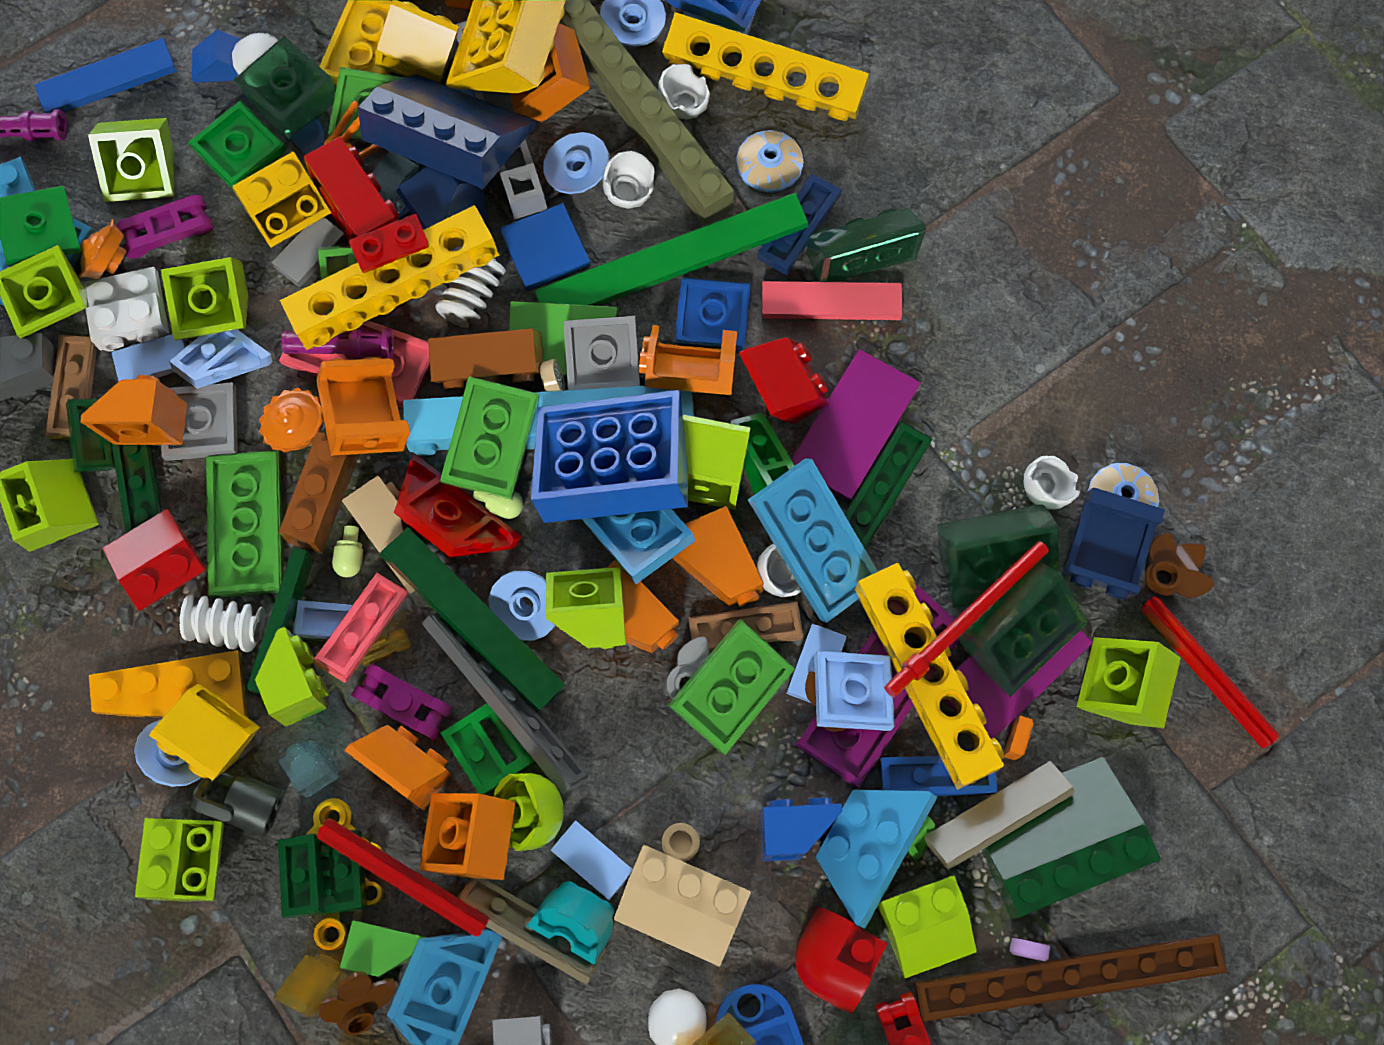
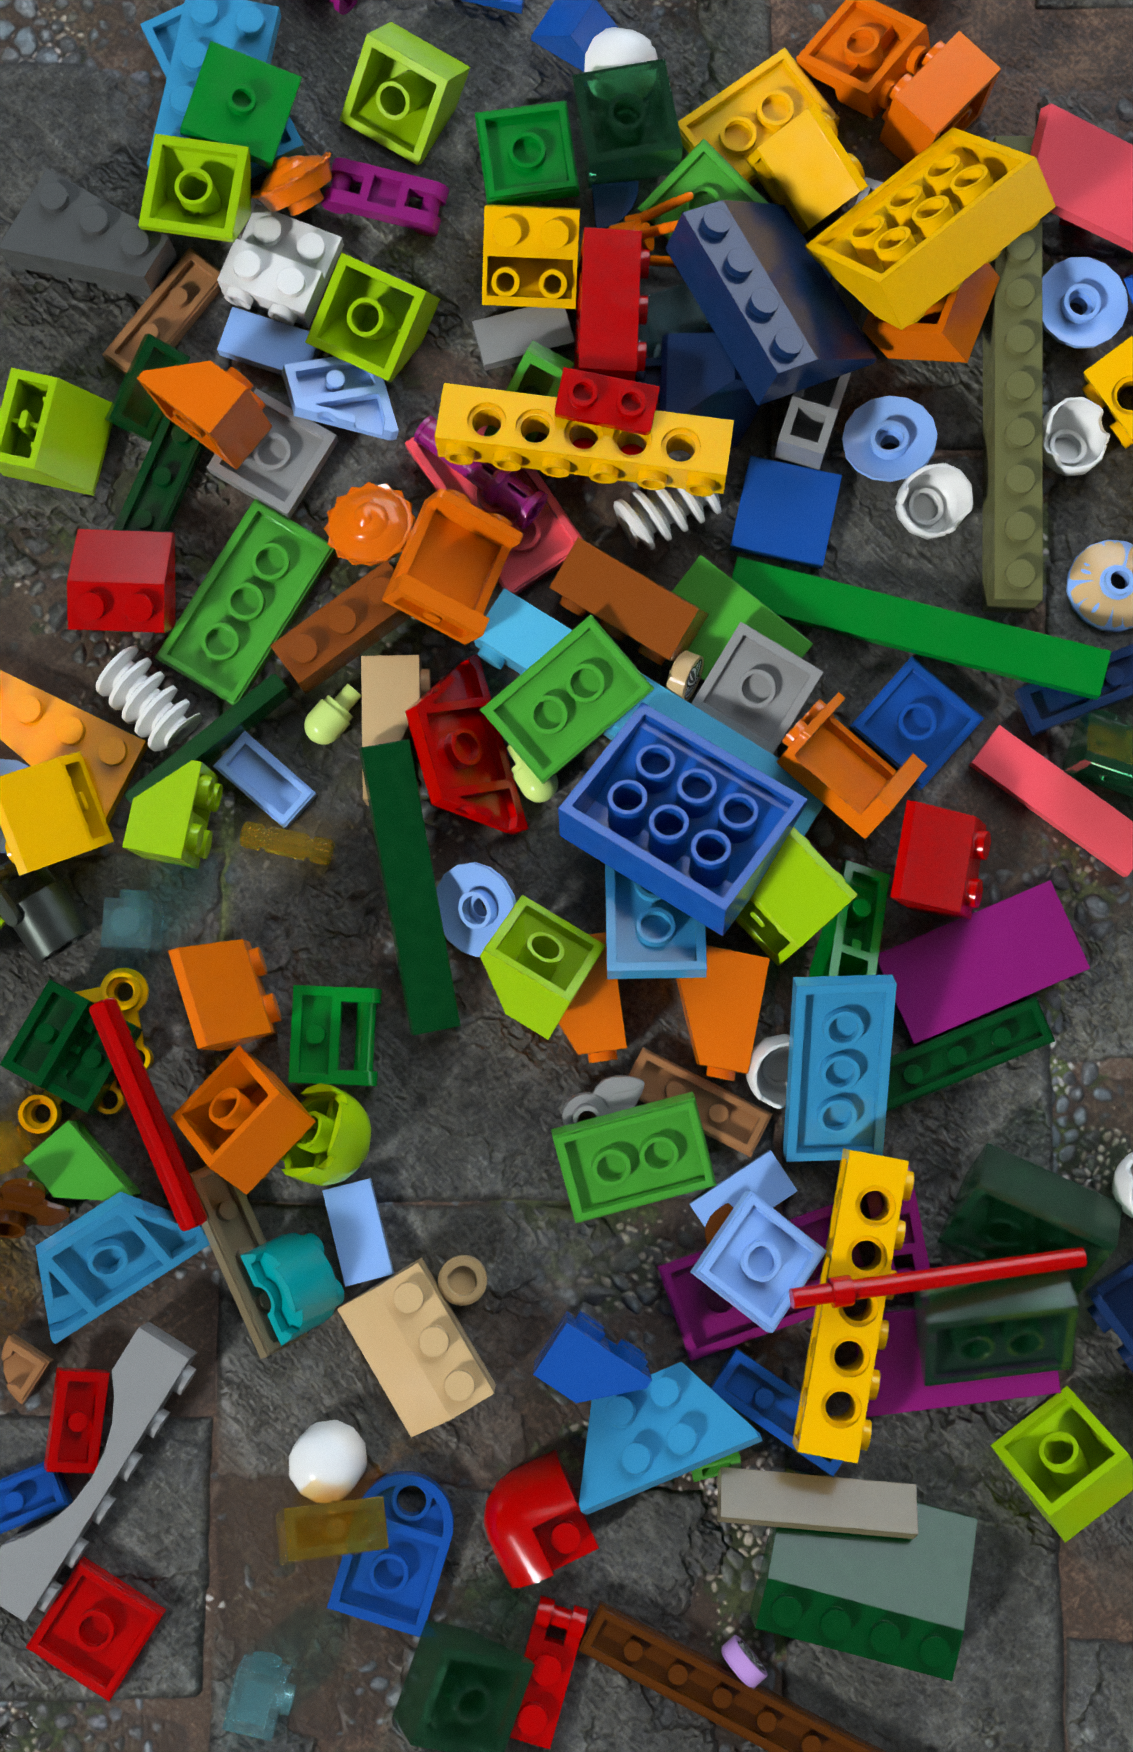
camera: 35 degrees right, 10 degrees up
(360, 627) = (287, 810): coral tile -> none
(402, 702) = (278, 920): magenta plate -> none
(510, 708) = (384, 1011): dark grey tile -> none
(928, 926) = (656, 1557): lime slope -> none
(1018, 738) = (900, 1436): orange tile -> none

